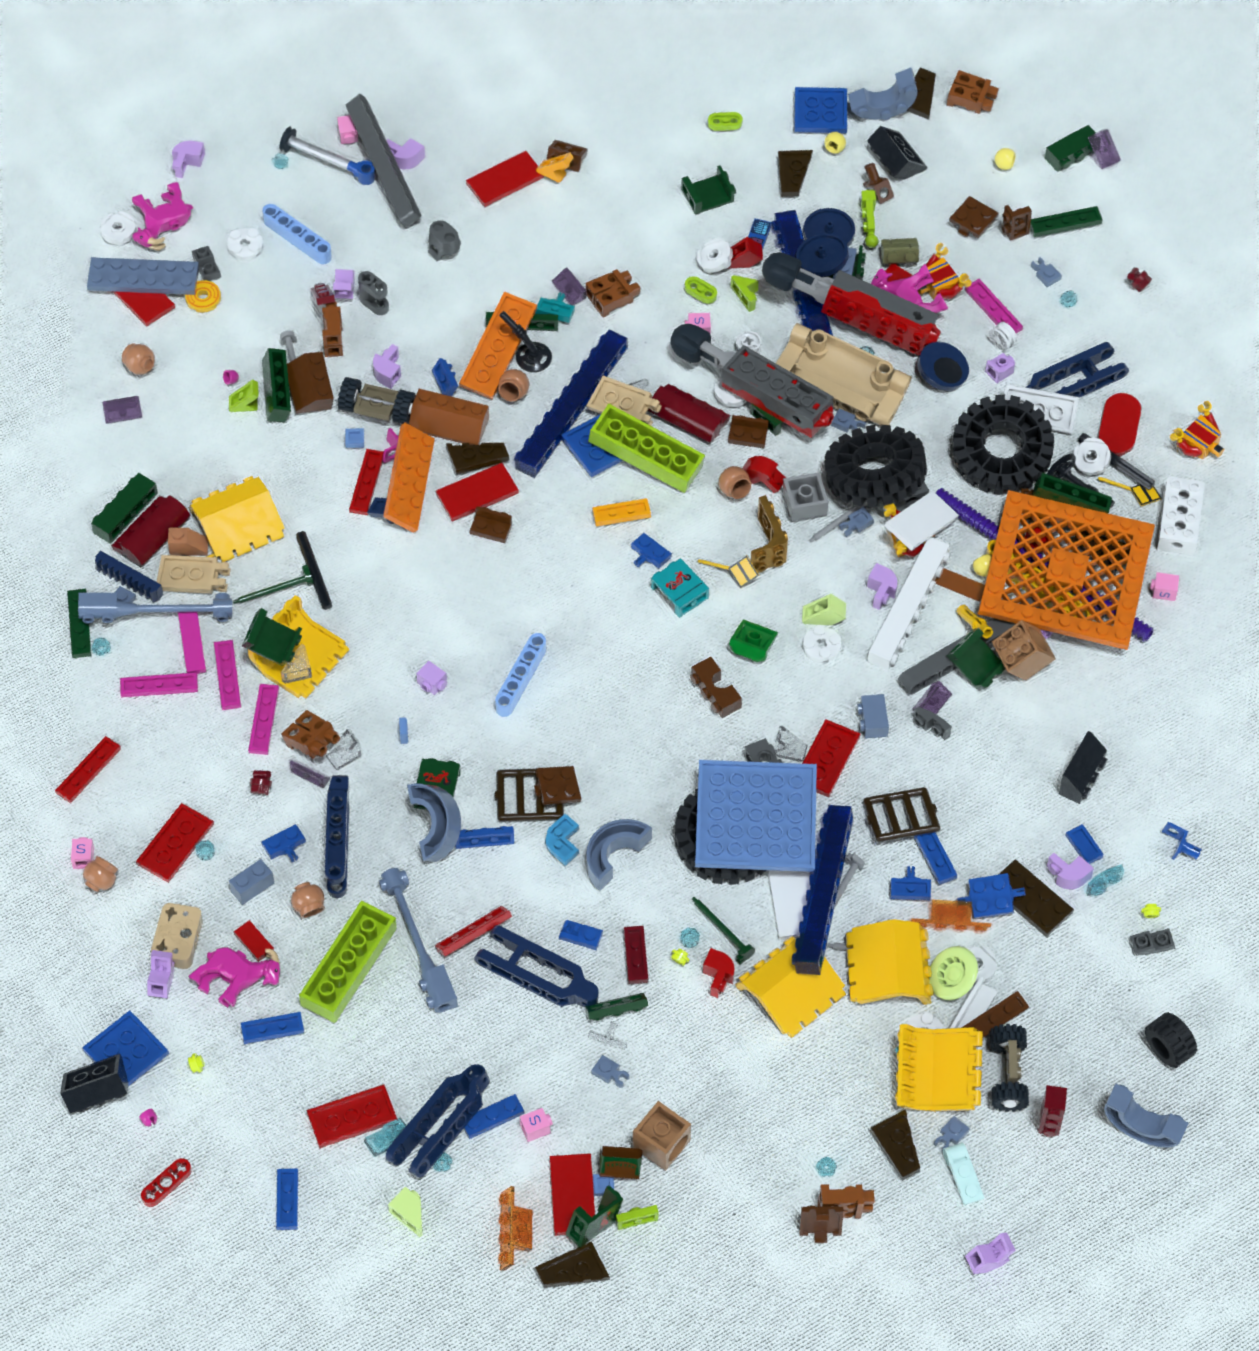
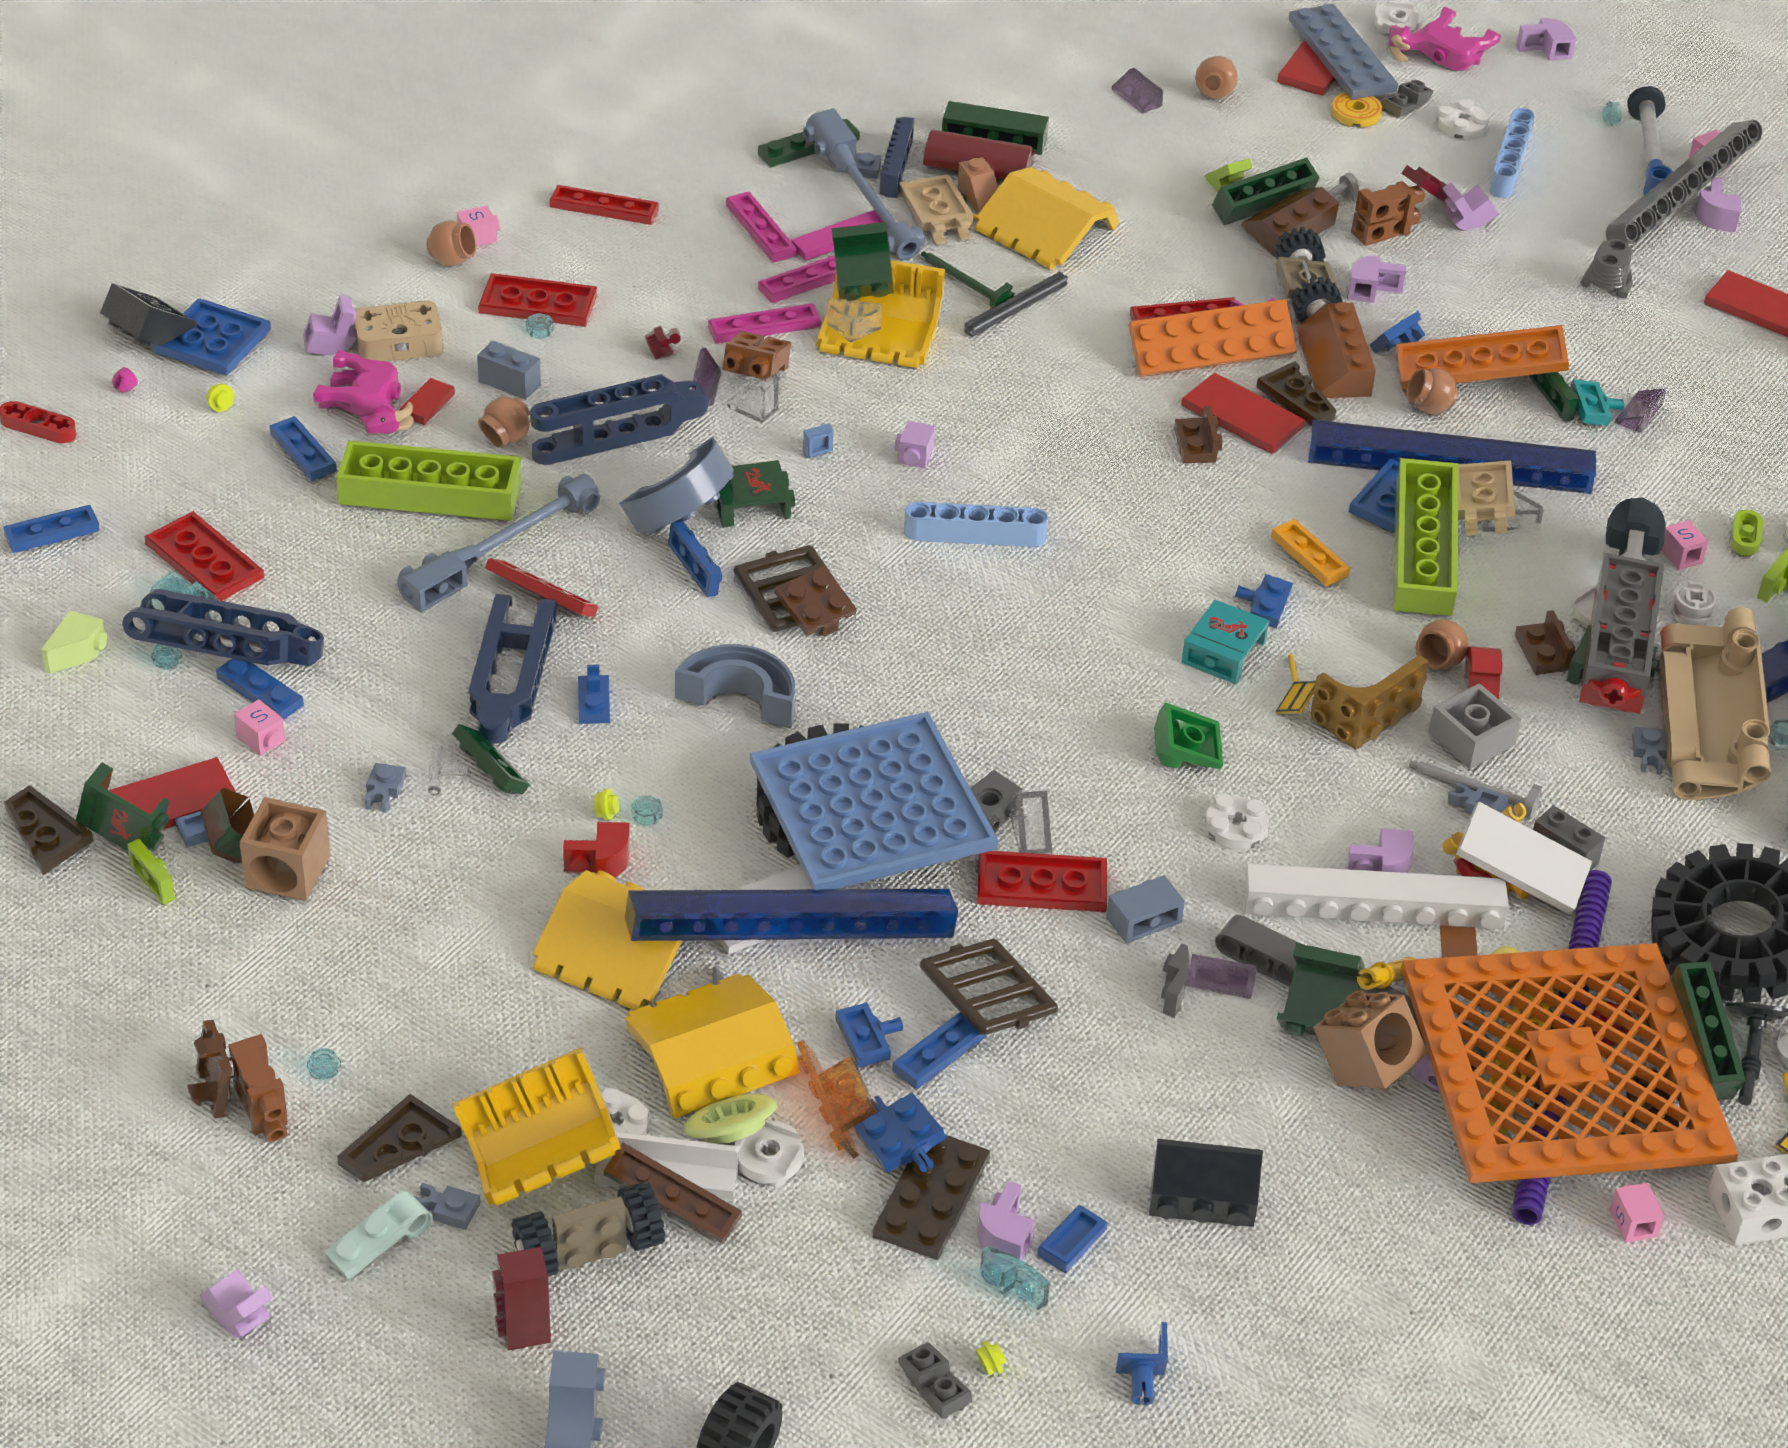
camera: 65 degrees right, 15 degrees down
(101, 642) = (784, 165): clear light blue plate -> none
(230, 376) = (1257, 159): dark pink hinge -> none
(284, 843) = (580, 380): blue plate -> none
(354, 438) = (1242, 282): medium blue plate -> none
(368, 295) = (1472, 226): dark grey connector -> none
(514, 1228) = (83, 755): clear orange bracket -> none
(532, 352) = (1504, 398): black dish -> none
(557, 839) = (744, 630): dark azure plate -> none
(611, 291) = (1667, 445): dark orange hips -> none
(636, 955) = (586, 758): dark red plate -> none
(689, 412) = (1528, 571): dark red brick -> none
(722, 700) = (1070, 732): reddish brown arch -> none
(744, 952) = (653, 874): dark green piece -> none
(824, 611) = (1294, 806): yellowish green slope -> none
(856, 863) = (872, 958): light grey piece -> none
(861, 484) = (1580, 776): black tyre -> none

